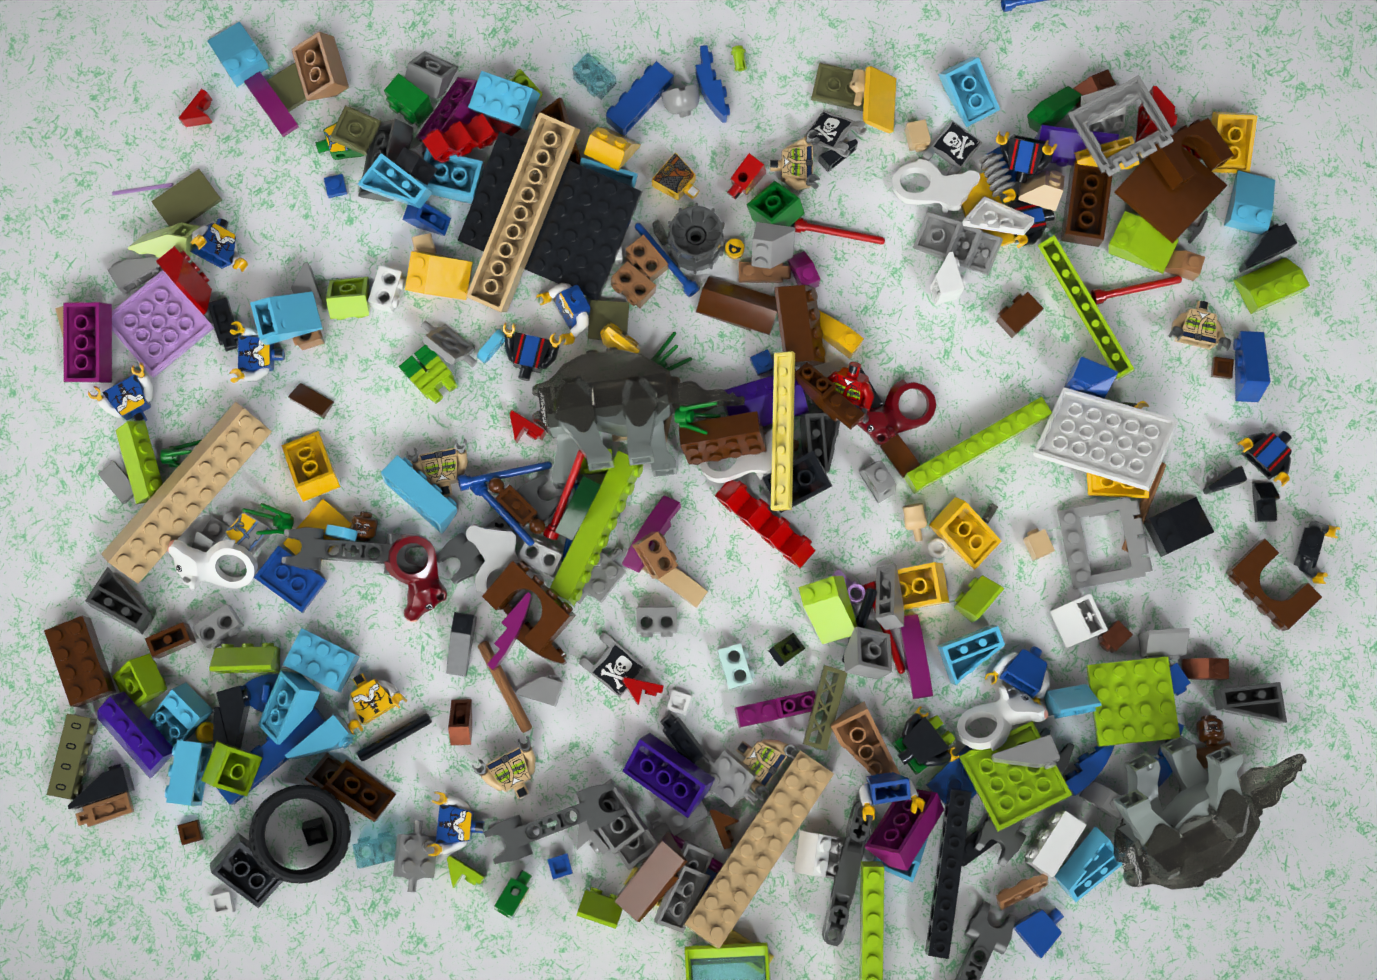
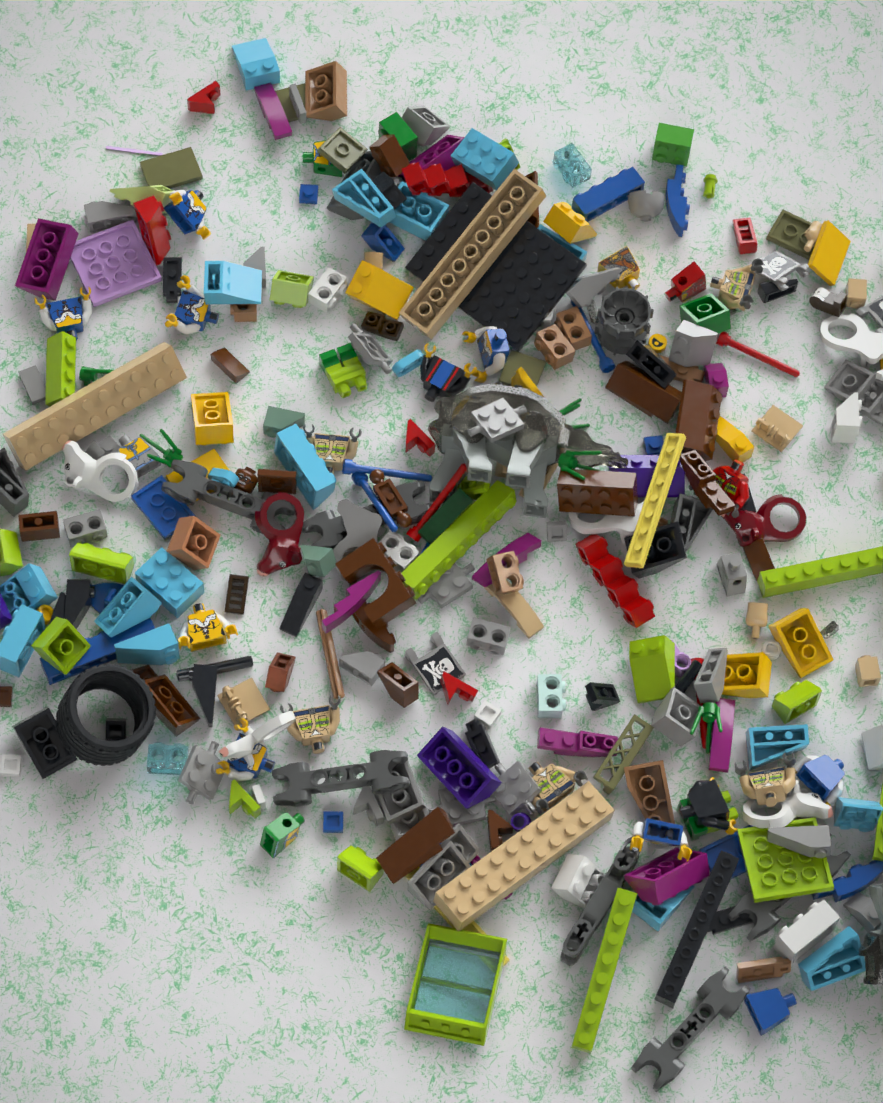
camera: 15 degrees right, 15 degrees down
(294, 89) = (297, 103): none -> light grey tile
(332, 613) = (193, 543): none -> nougat brick
(382, 450) = (280, 419): none -> sand green slope
(389, 633) = (238, 579): none -> dark brown slope
(390, 765) = (204, 687): none -> black slope
(397, 519) = (277, 481): none -> reddish brown tile
(405, 124) = (389, 155): none -> reddish brown brick
(433, 764) = (243, 701): none -> tan hinge
(450, 823) = (245, 745): none -> white animal
(453, 312) = (383, 327): none -> dark brown slope
(463, 595) = (318, 560): none -> sand green slope
(479, 863) = (258, 796): none -> white tile
(582, 701) = (399, 684): none -> reddish brown slope
(601, 401) = (497, 420): none -> plate
(653, 207) = (589, 286): none -> light grey slope
(690, 24) = (672, 144): none -> bright green brick
(692, 486) = (556, 531): none -> light grey tile
(737, 276) = (651, 363): none -> black slope
(745, 813) = (520, 821): none -> dark purple piece
(793, 113) = (750, 244): none -> red slope
(879, 306) = (777, 428): none -> tan hinge
(893, 153) = (828, 301): none -> dark brown leg
(898, 640) = (709, 712): none -> green plant
(977, 699) = (768, 785): none -> tan torso

